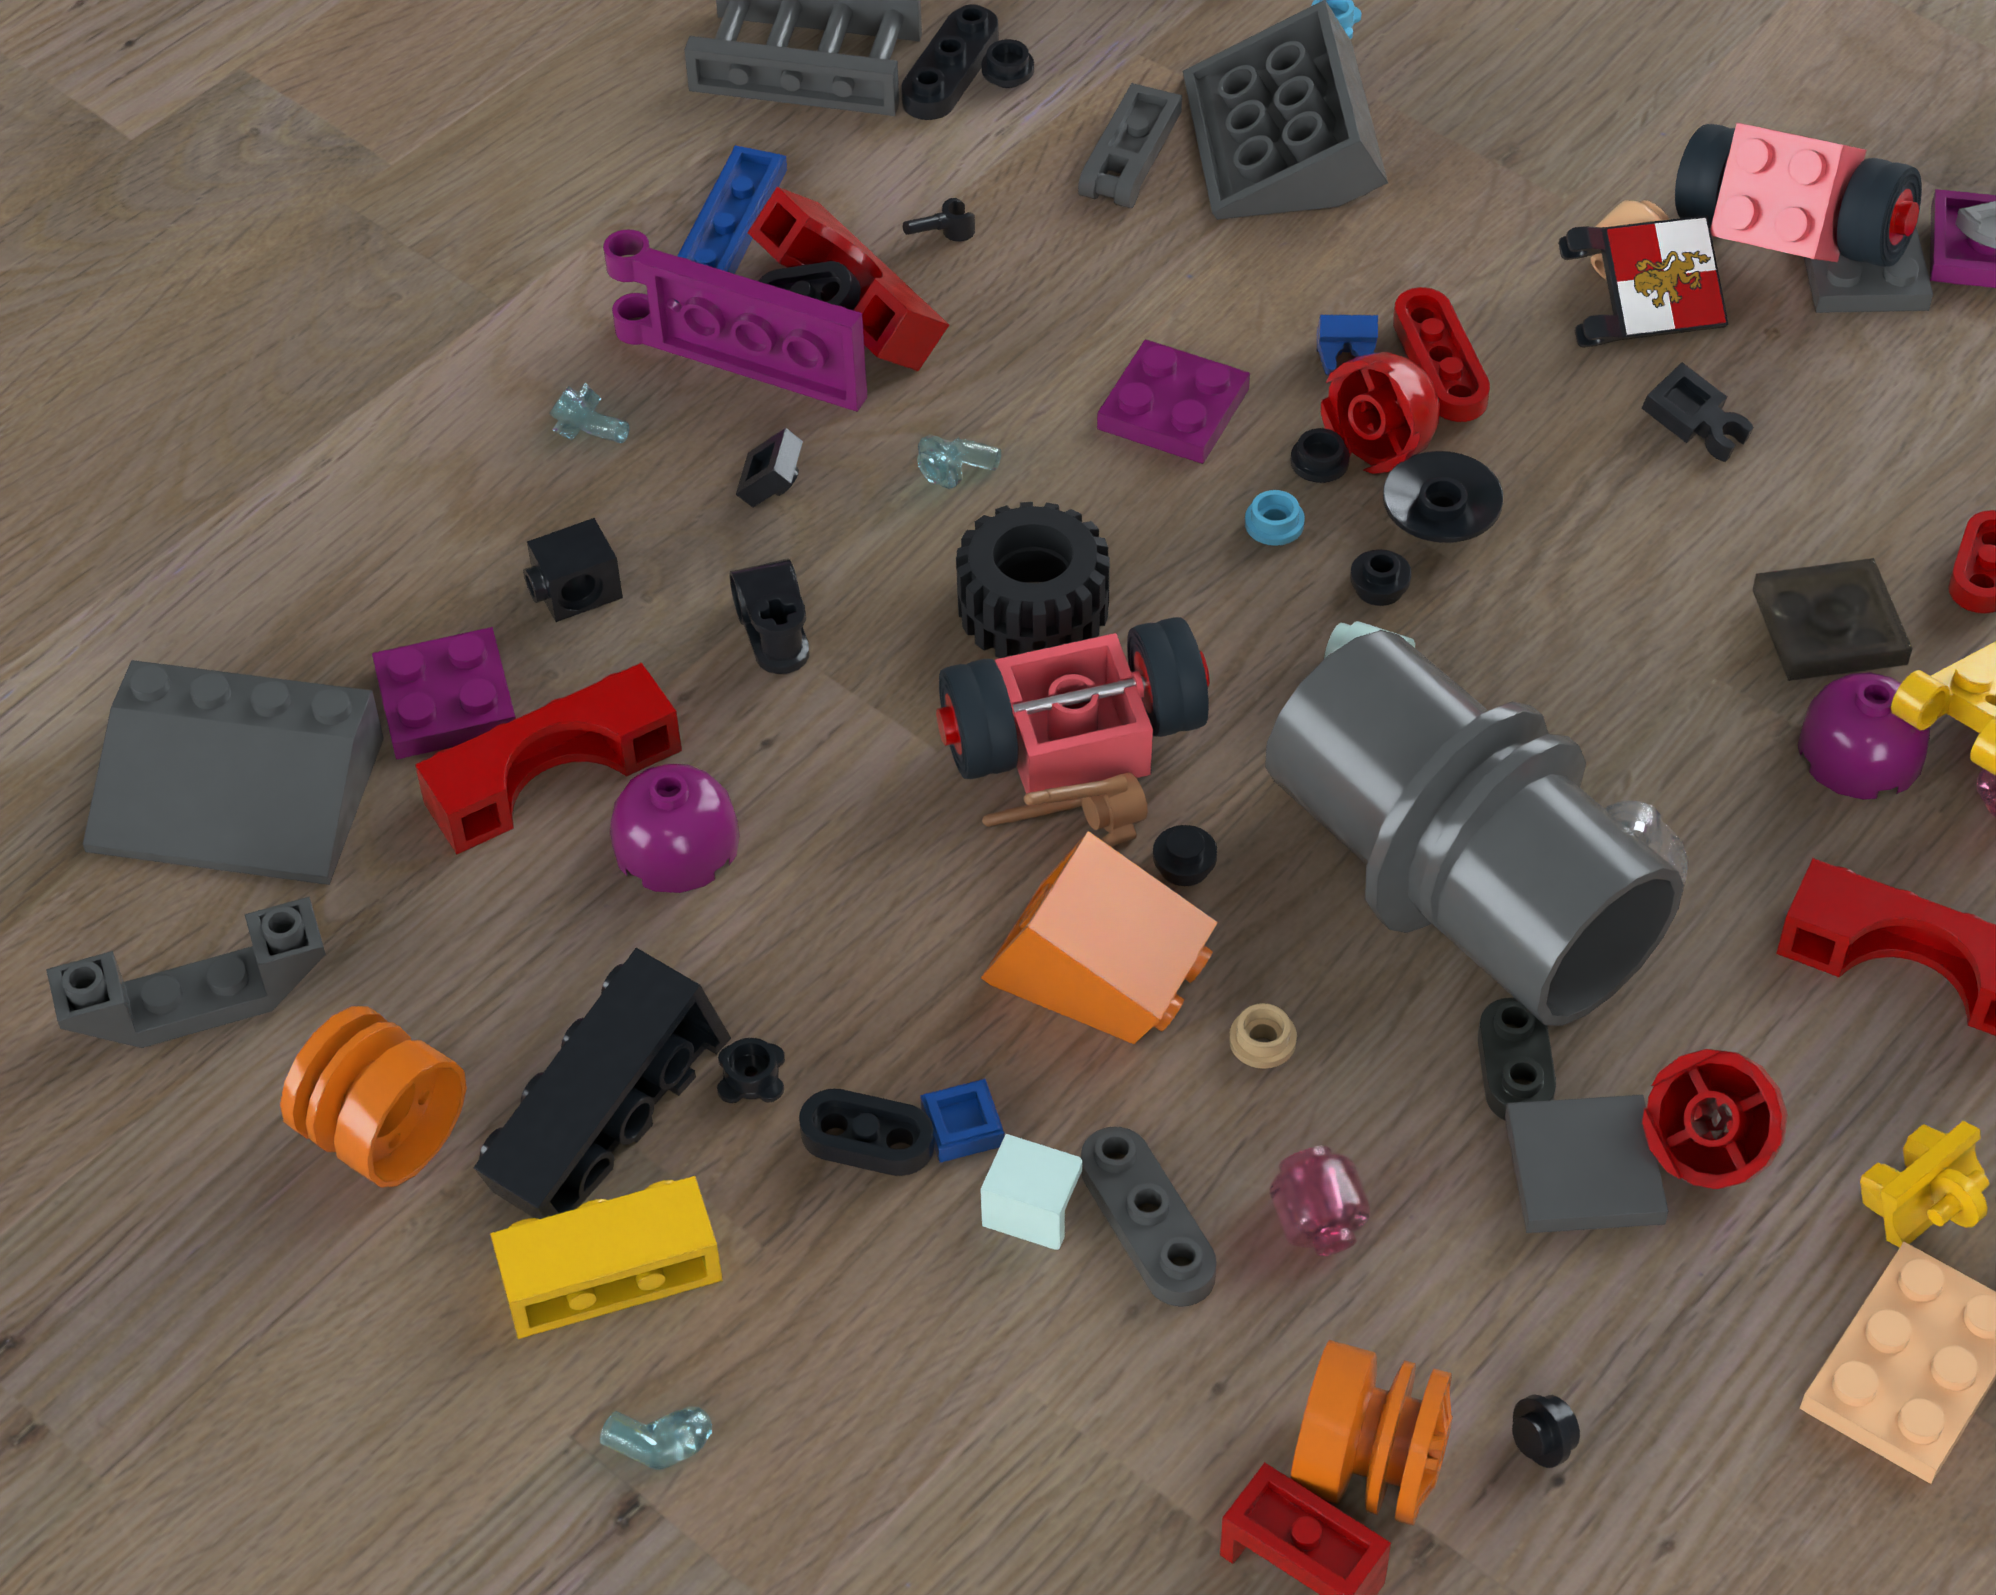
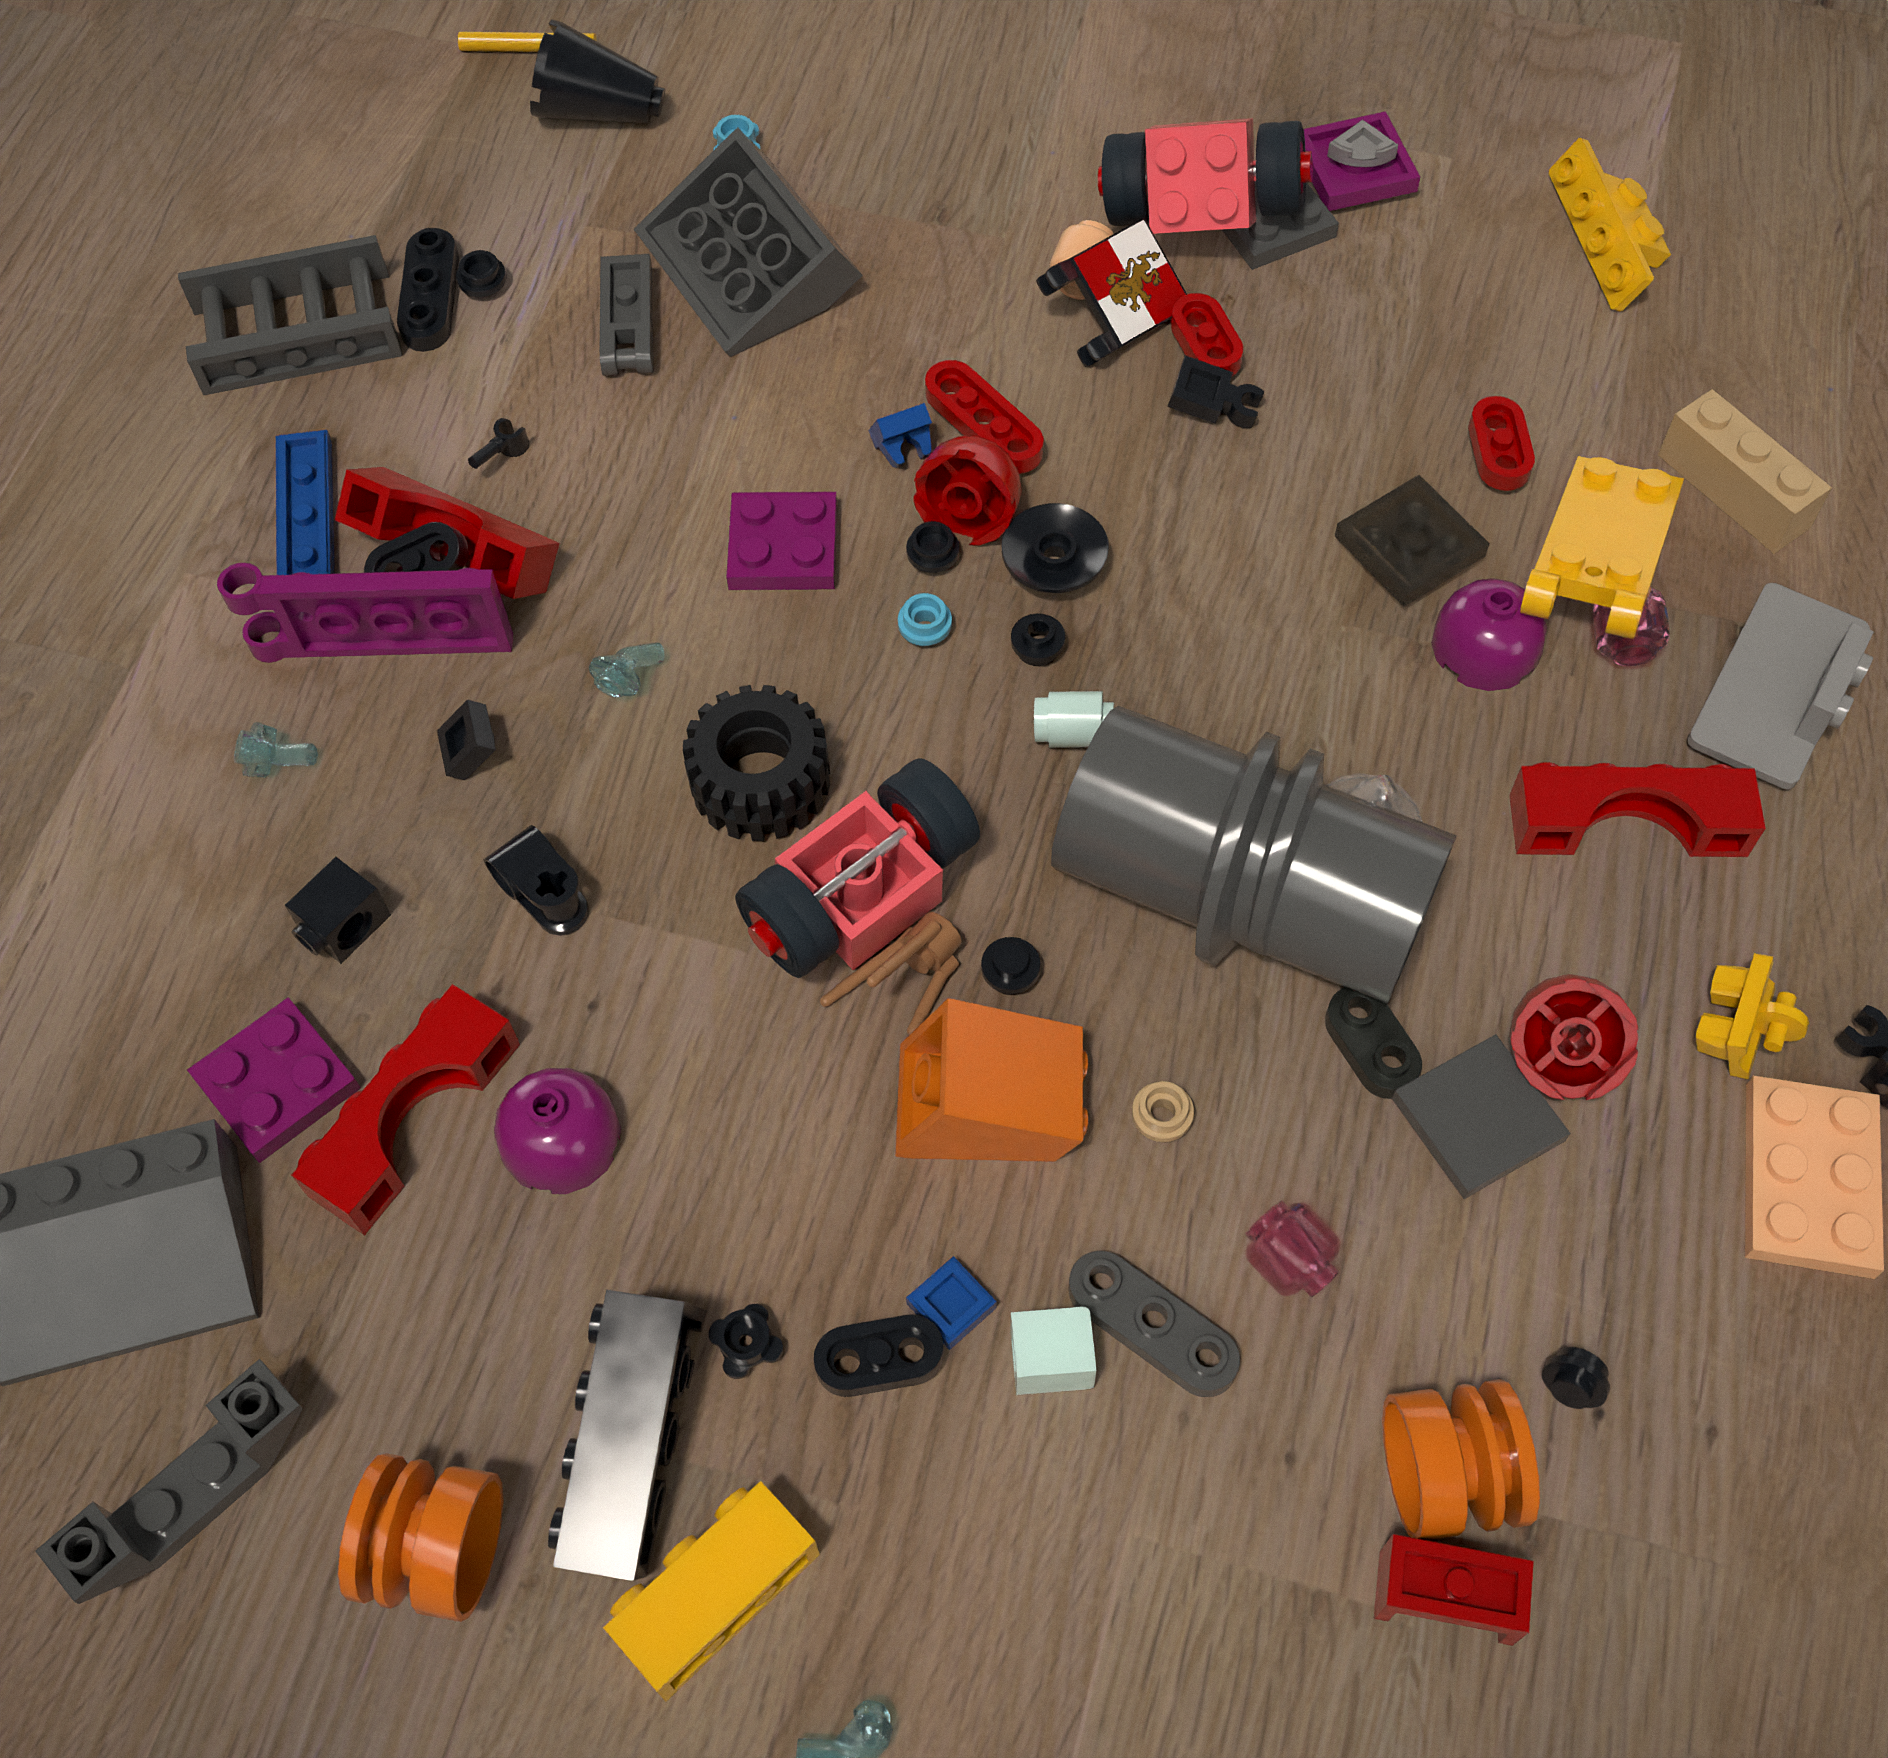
camera: 25 degrees left, 10 degrees up
(1723, 352) = (1213, 339): none -> red plate

